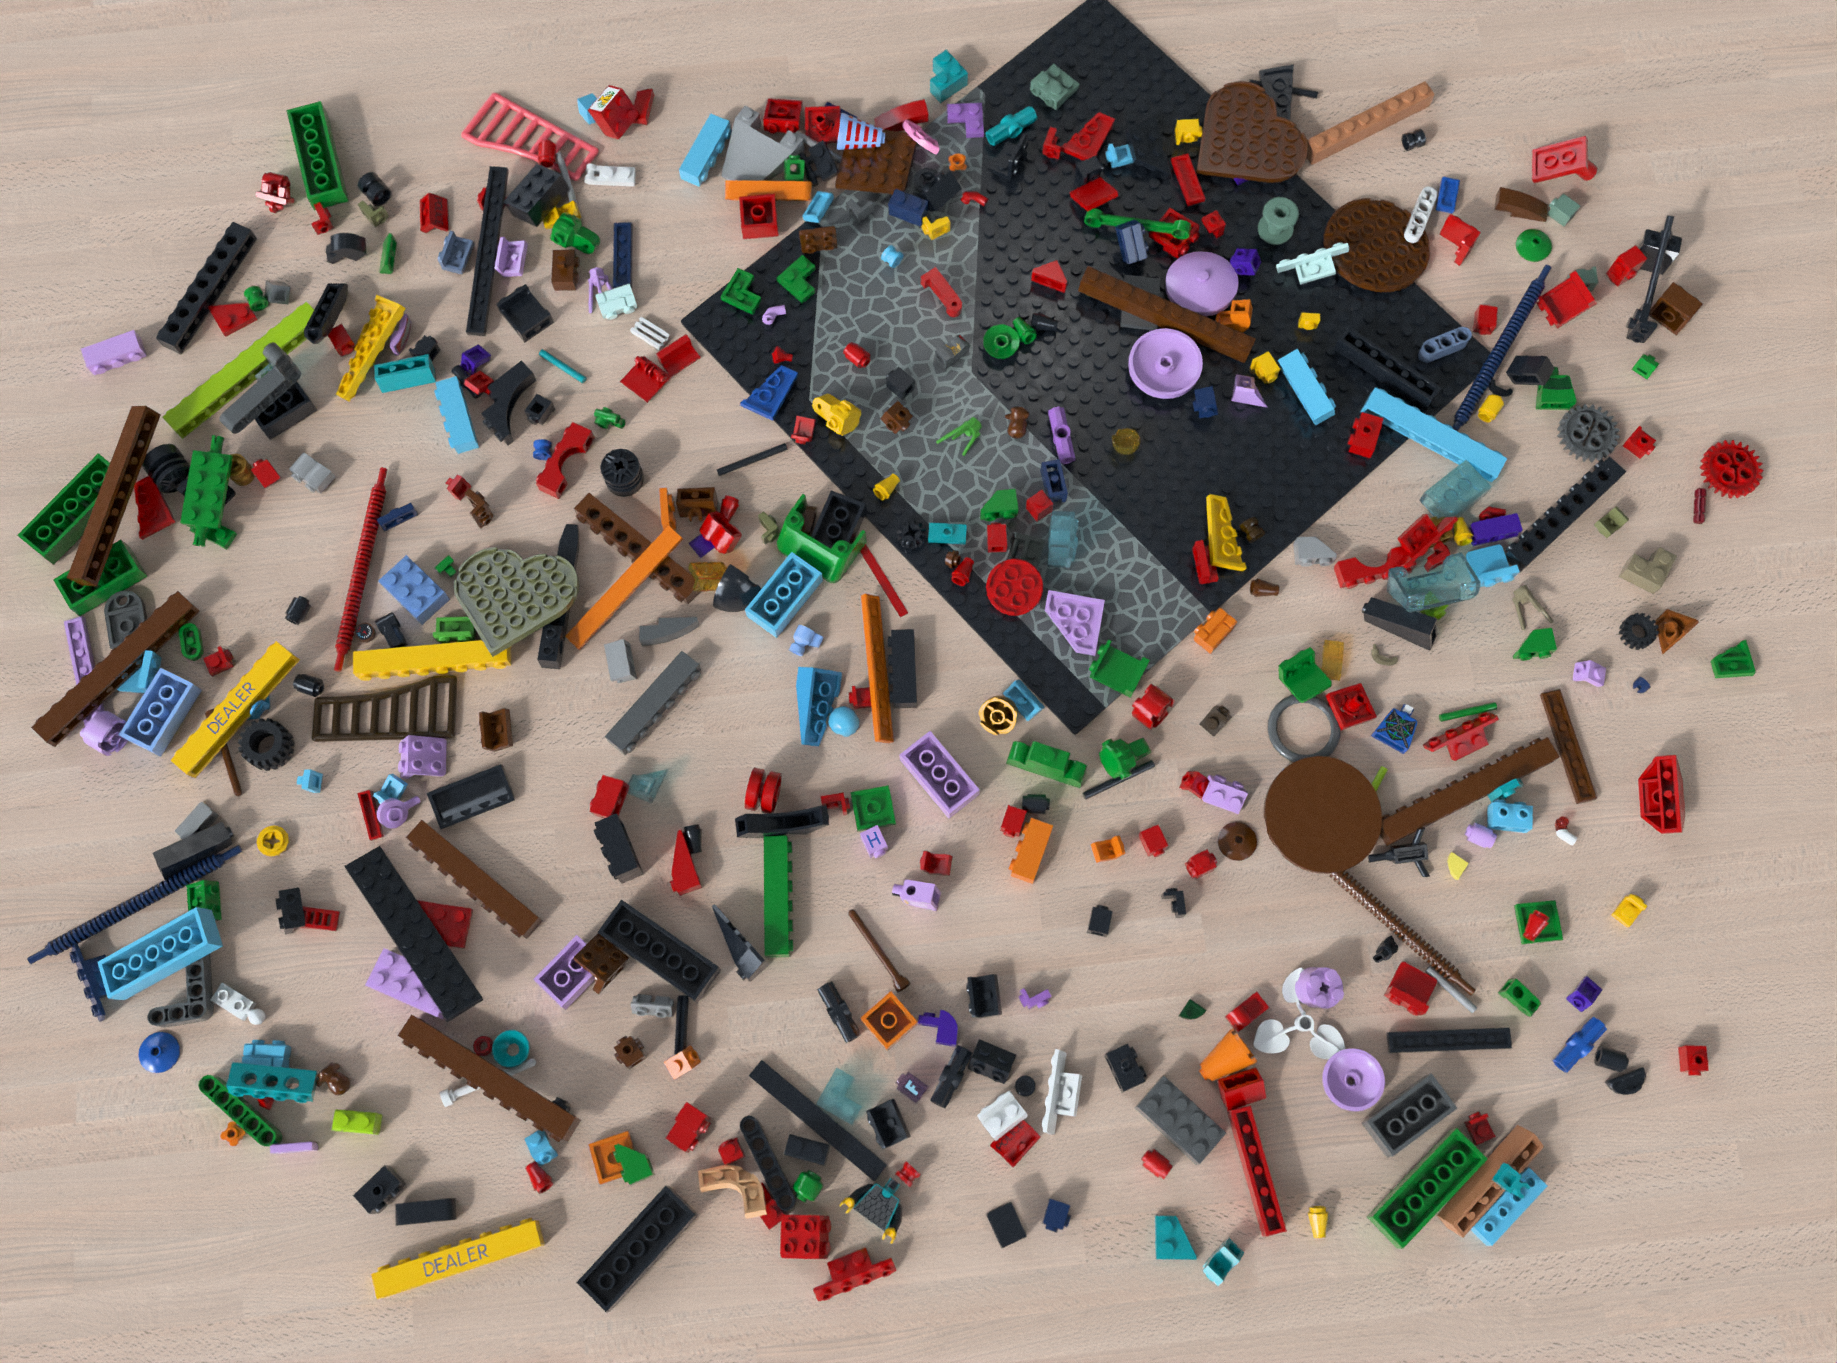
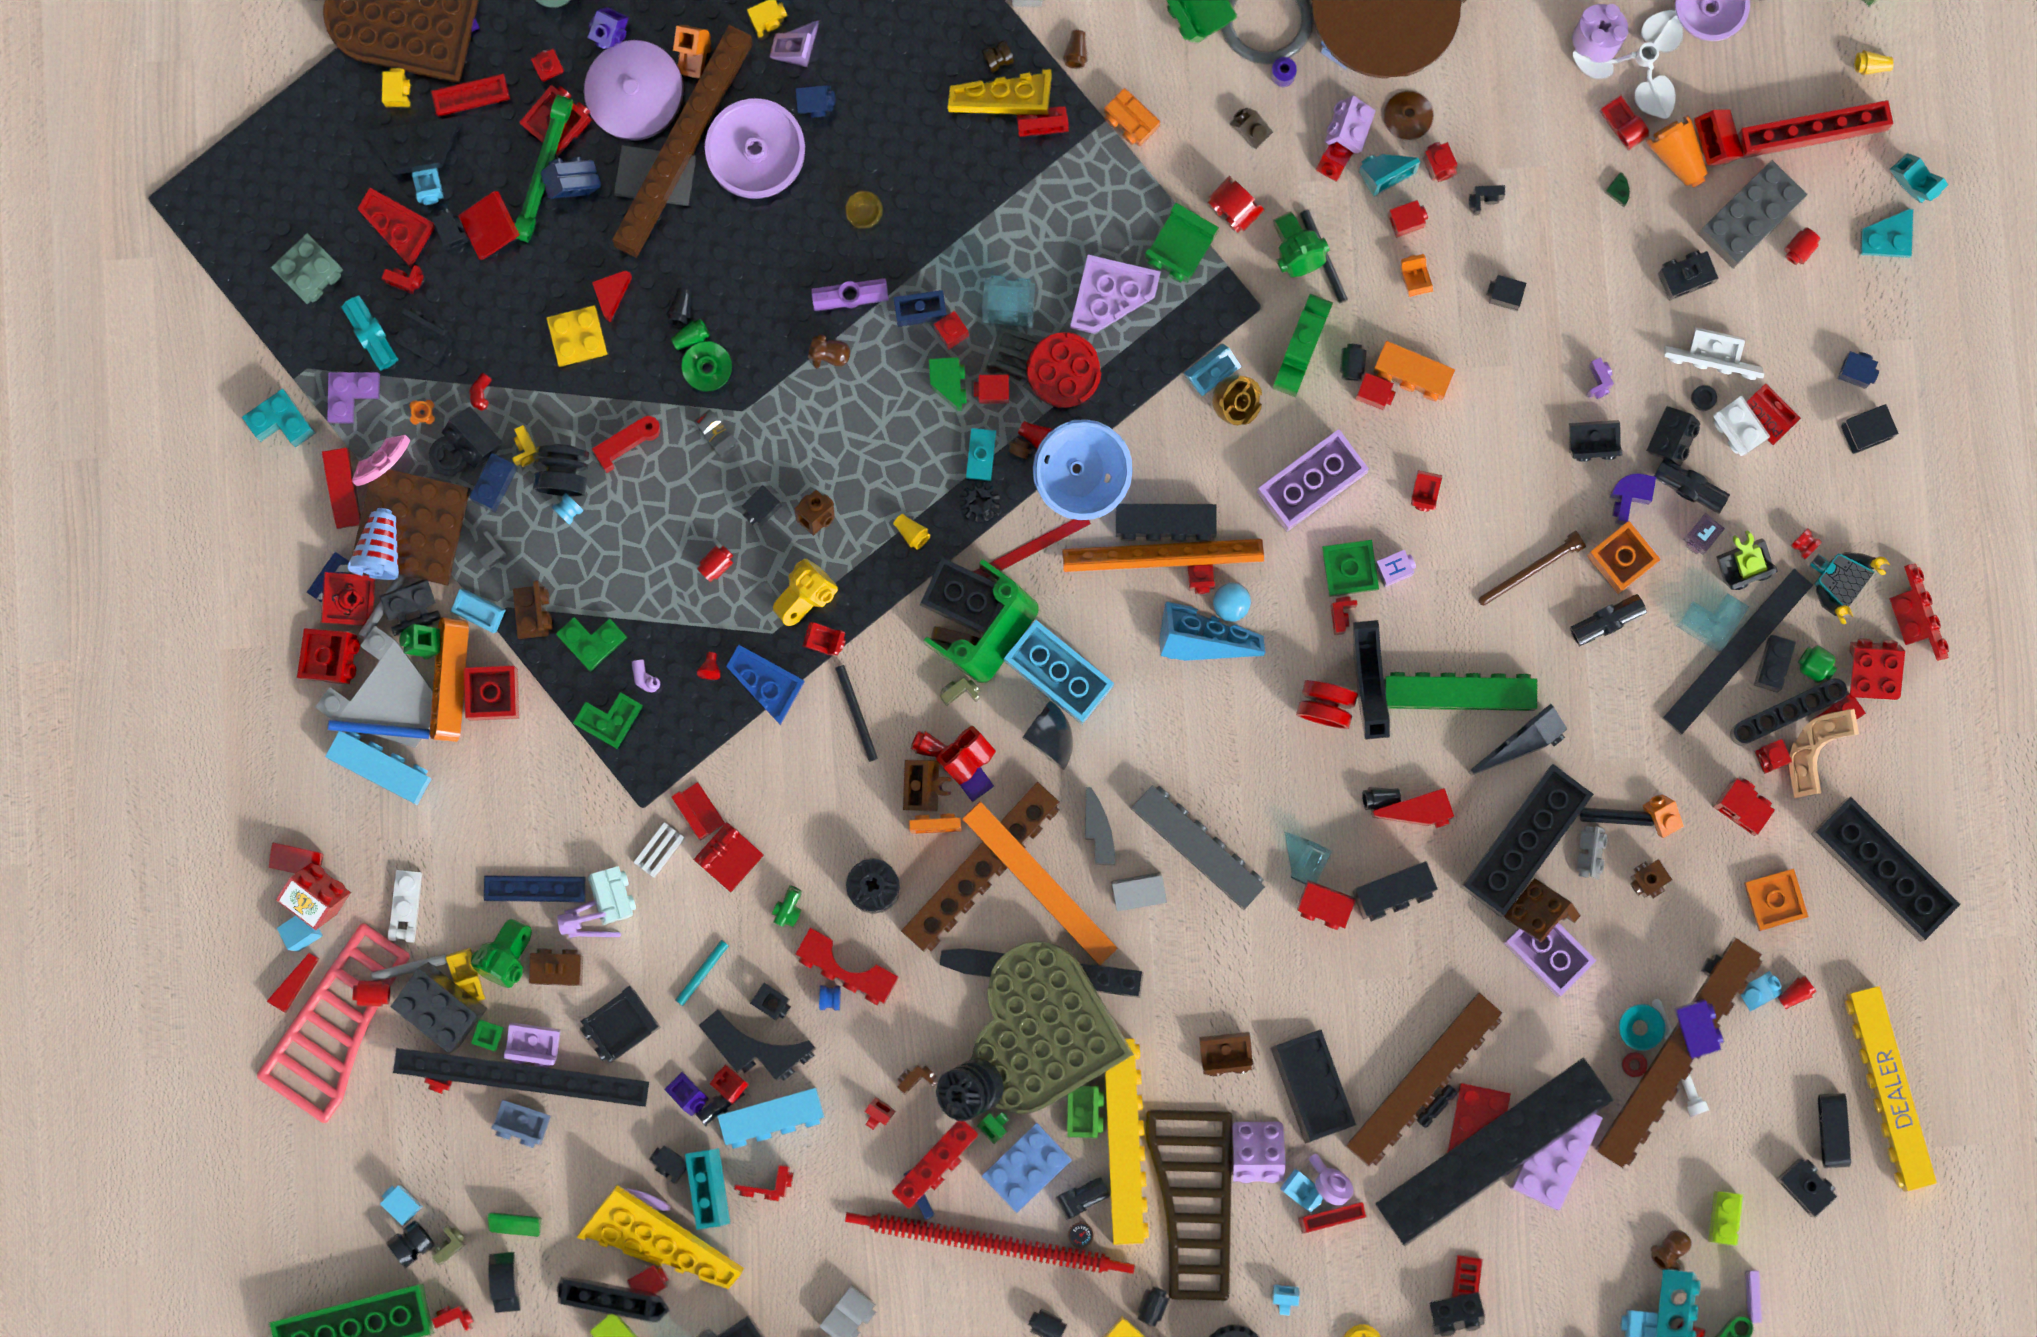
camera: 85 degrees left, 10 degrees up
(401, 181) = (400, 1204): none -> medium azure brick
(406, 423) = (783, 1180): none -> red bracket
(417, 524) = (935, 1163): none -> red bracket
(433, 213) = (452, 1159): red panel -> none
(454, 891) = (1437, 1106): none -> black axle
(469, 543) = (969, 1089): none -> black wheel
(501, 1088) = (1698, 1028): none -> dark purple brick
(517, 228) = (487, 1035): none -> green tile
(556, 110) = (289, 989): none -> red piece
(635, 1164) = (1788, 870): green slope -> none
(707, 575) = (1027, 769): clear yellow bracket -> none
(731, 145) = (378, 729): none -> blue bar
(804, 636) = (1117, 651): light blue piece -> none
(892, 1124) = (1749, 558): none -> lime plate
(918, 247) = (561, 468): none -> black wheel
(922, 589) = (1098, 453): none -> light blue piece
(925, 895) = (1466, 504): lavender torso -> none
(970, 428) = (833, 415): bright green plant -> none
(1018, 257) = (577, 336): none -> yellow plate
(1189, 822) = (1386, 171): none -> teal slope
(1259, 745) = (1283, 79): none -> dark purple brick

